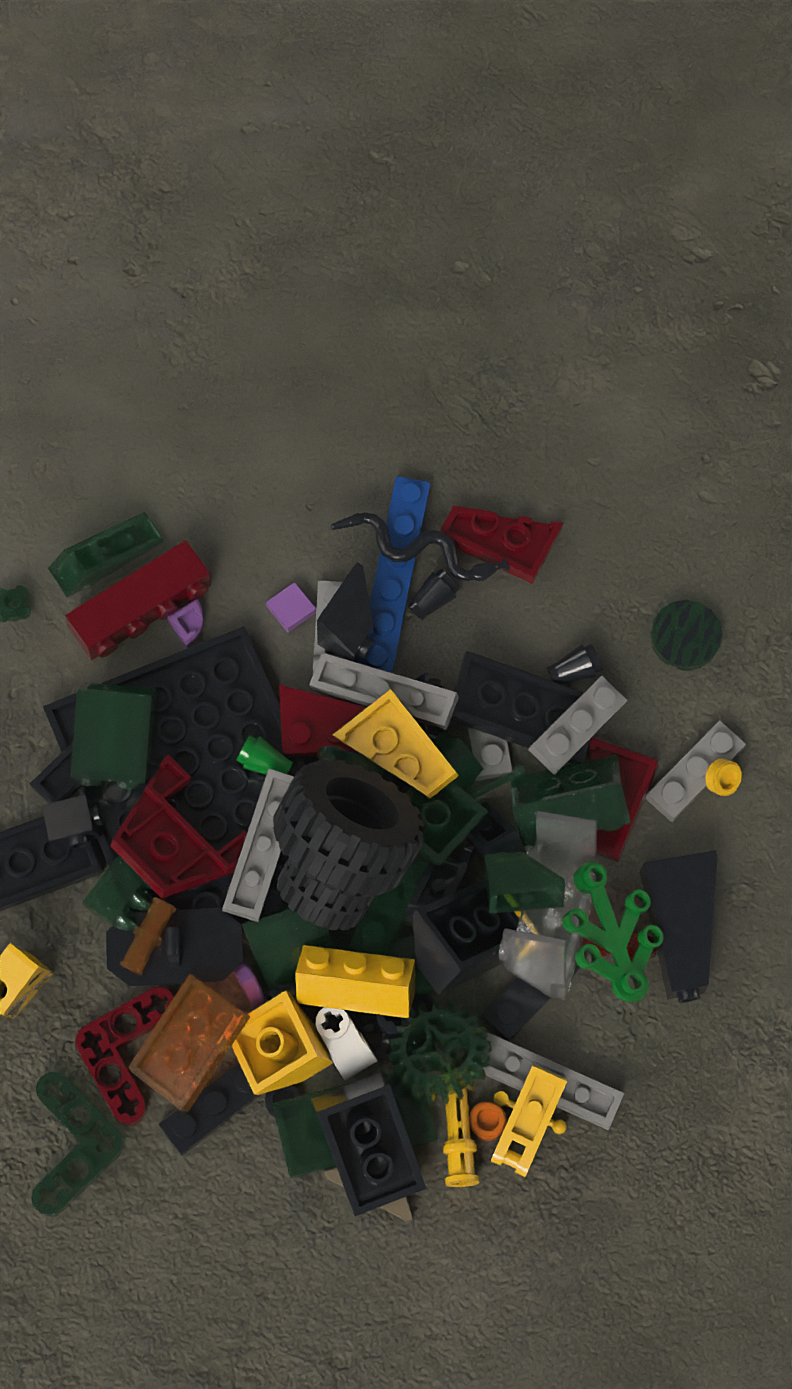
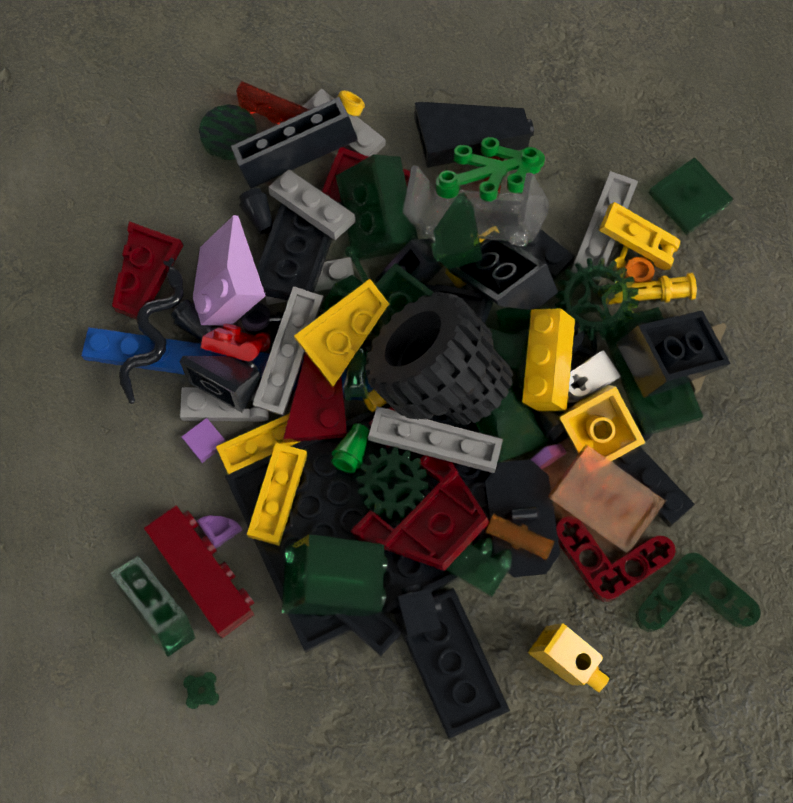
camera: 90 degrees left, 0 degrees up
(207, 789) = (393, 469): none -> clear green gear
(215, 677) = (277, 494): none -> yellow plate
(278, 656) = (253, 445): none -> yellow plate
(404, 627) = (234, 343): none -> red plate
(438, 663) = (256, 319): none -> black tile
(479, 624) = (226, 277): none -> lavender slope
(593, 1200) = (690, 196): none -> clear green plate
(657, 704) = (294, 142): none -> black brick
(710, 691) = (267, 104): none -> clear red plate

